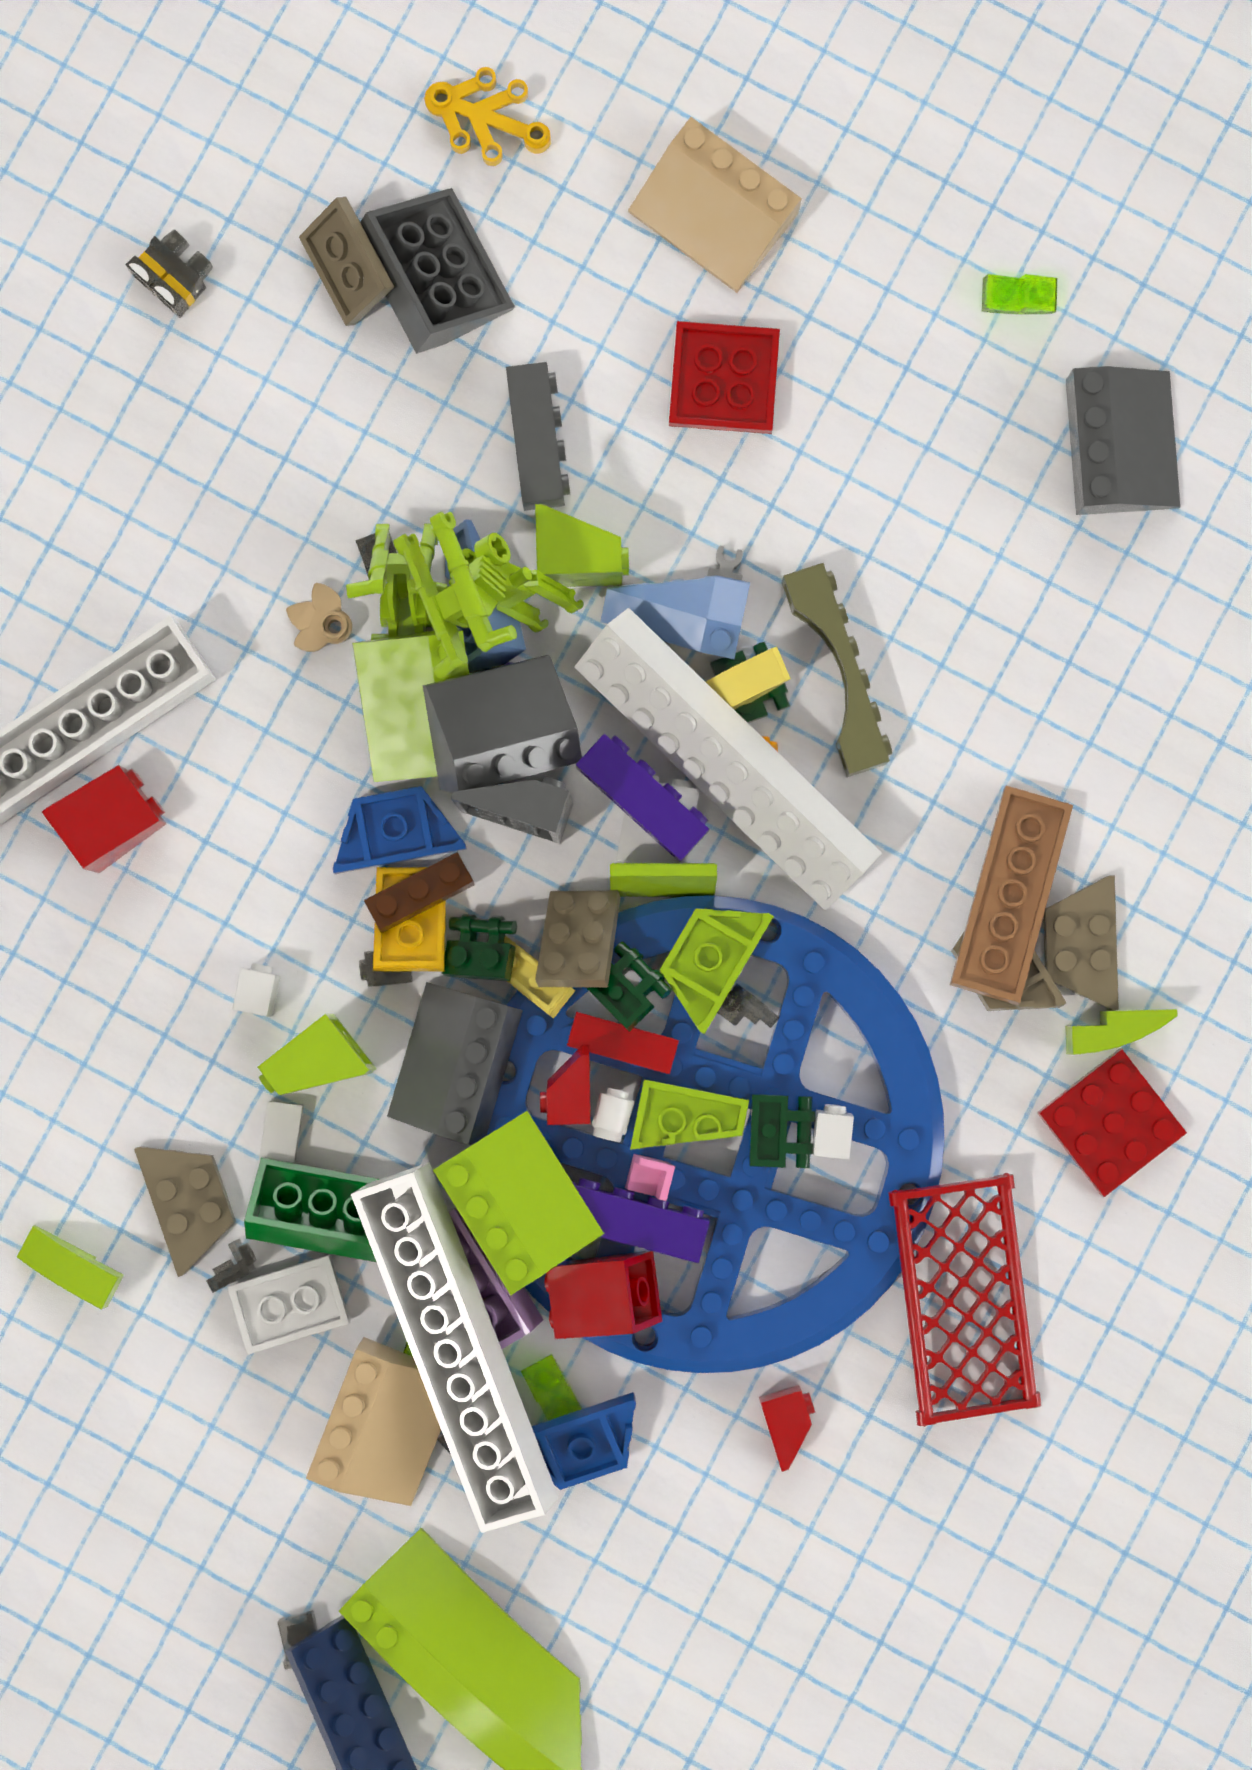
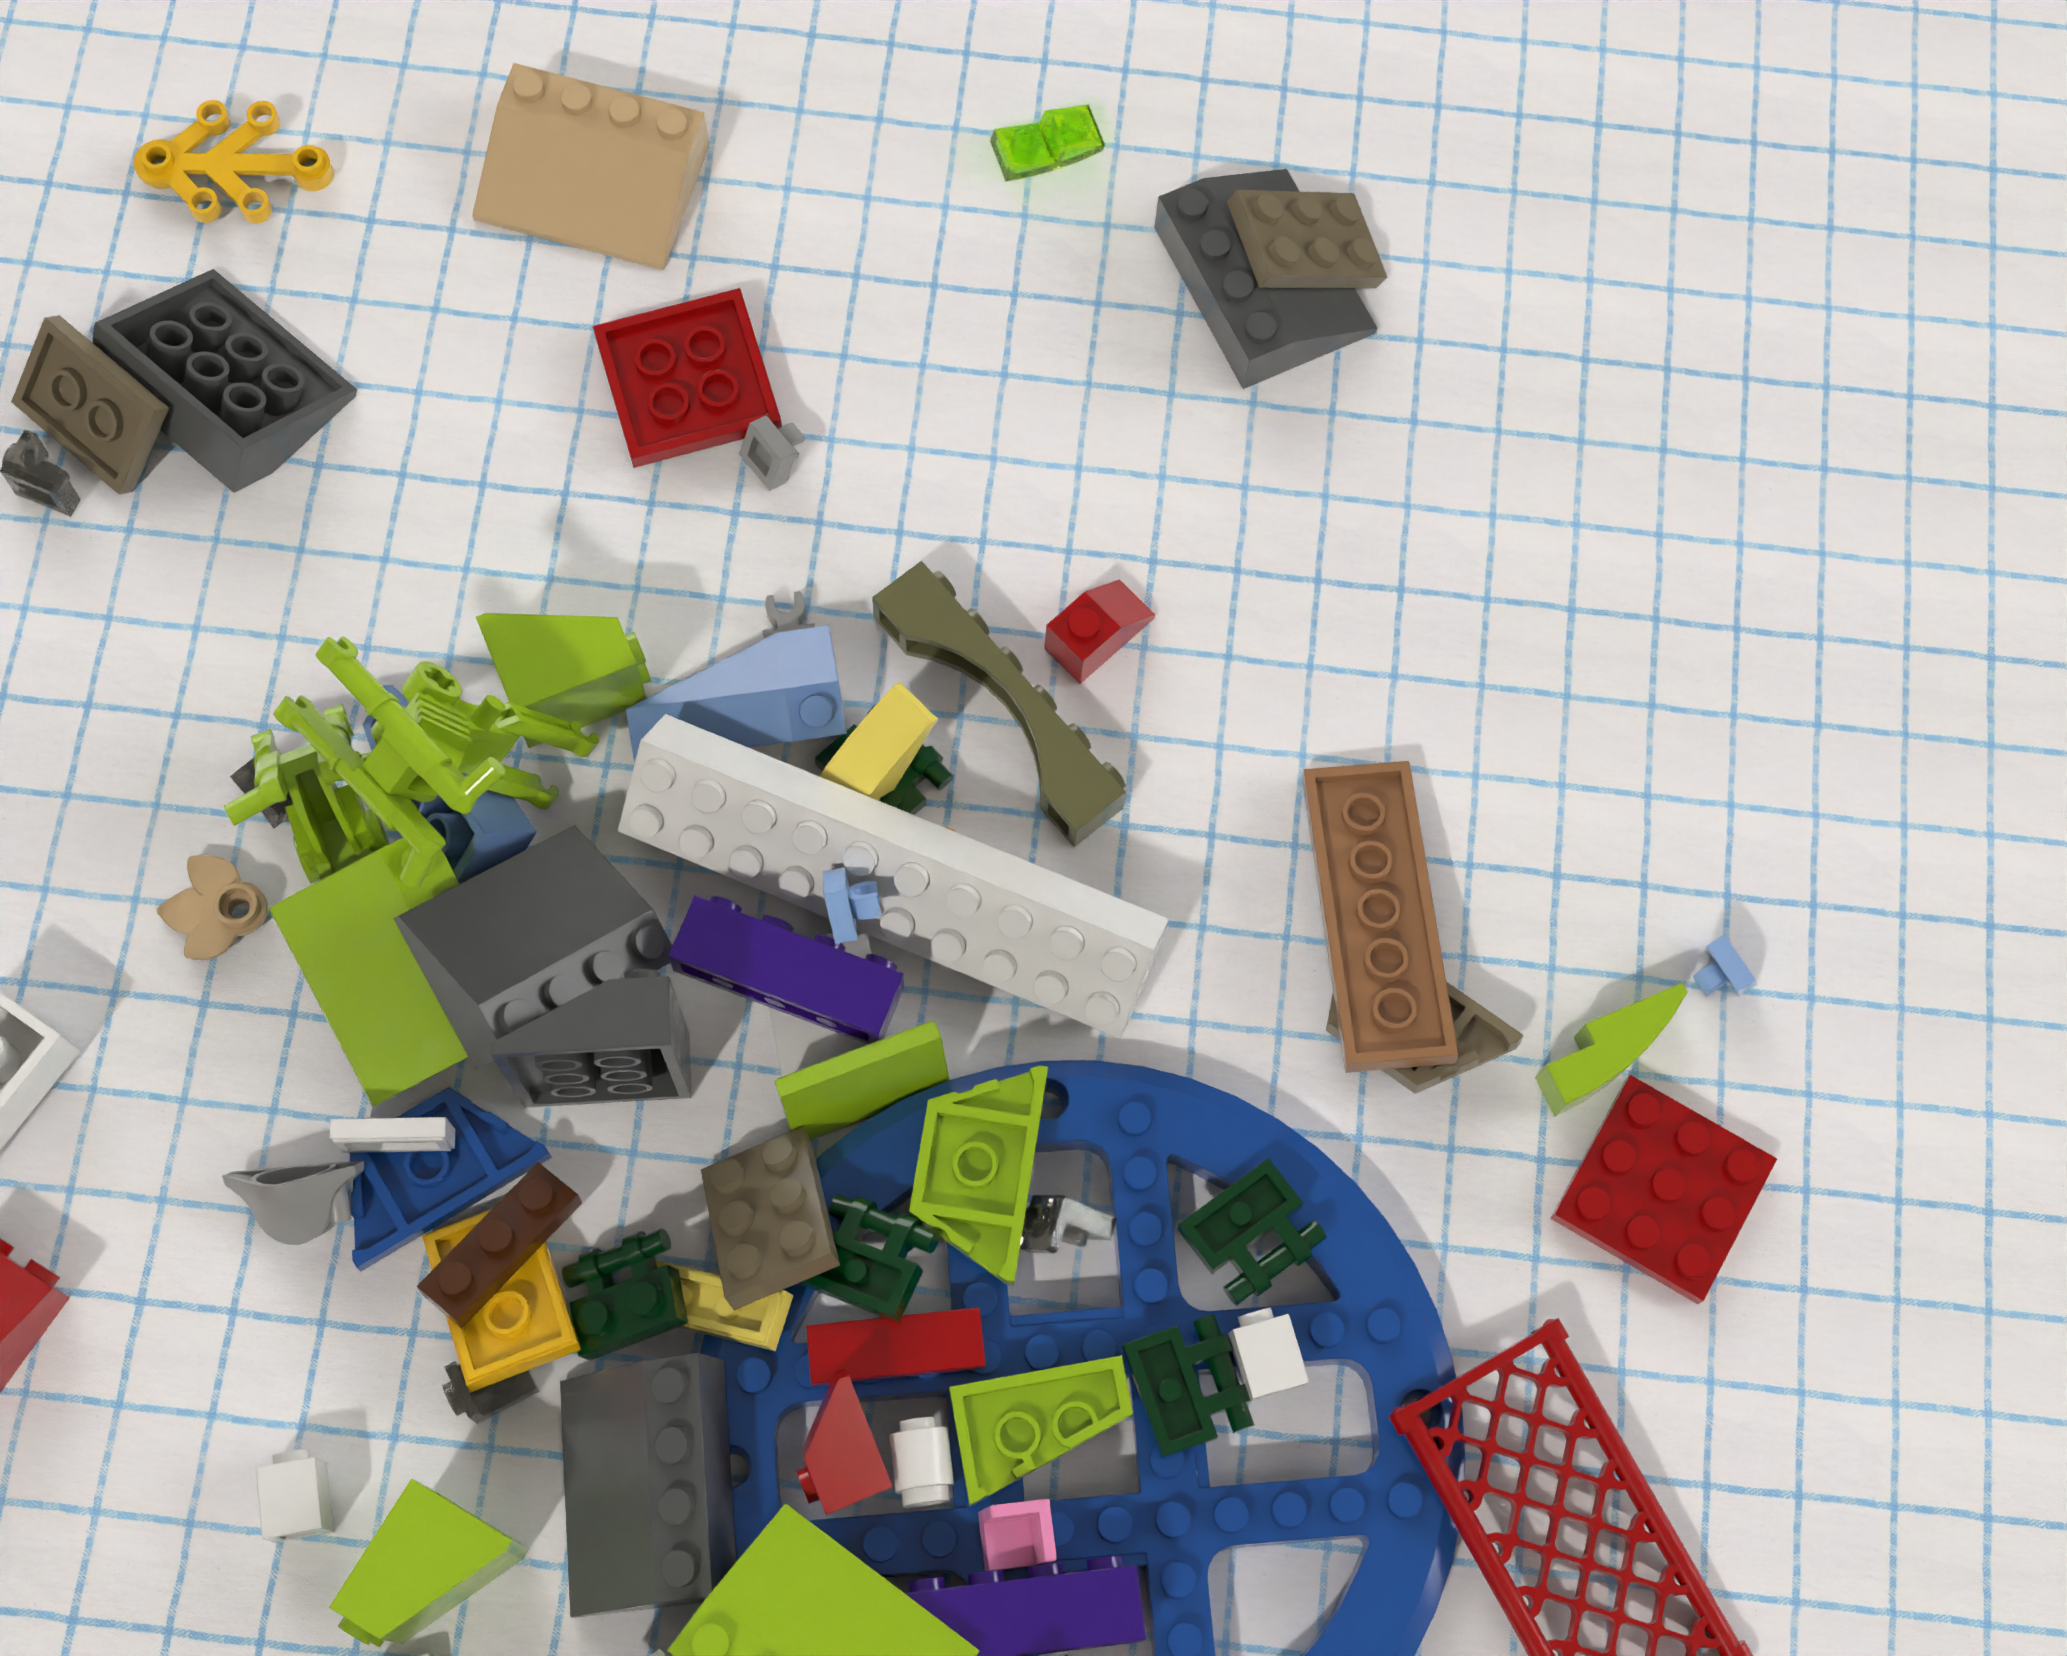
camera: 30 degrees left, 15 degrees down
(301, 302) = (36, 479): none -> clear smoke bracket
(312, 818) = (297, 1201): none -> light grey hat
(379, 805) = (392, 1134): none -> white tile
(535, 435) = (445, 538): dark grey brick -> none
(693, 773) = (848, 903): none -> light blue tile
(758, 449) = (771, 450): none -> light grey tile
(851, 1046) = (1240, 1218): none -> dark green plate
(917, 644) = (1095, 628): none -> red slope
(1083, 943) = (1508, 947): dark tan wing -> none
(1158, 432) = (1306, 239): none -> dark tan plate
(1211, 1008) = (1725, 969): none -> light blue tile

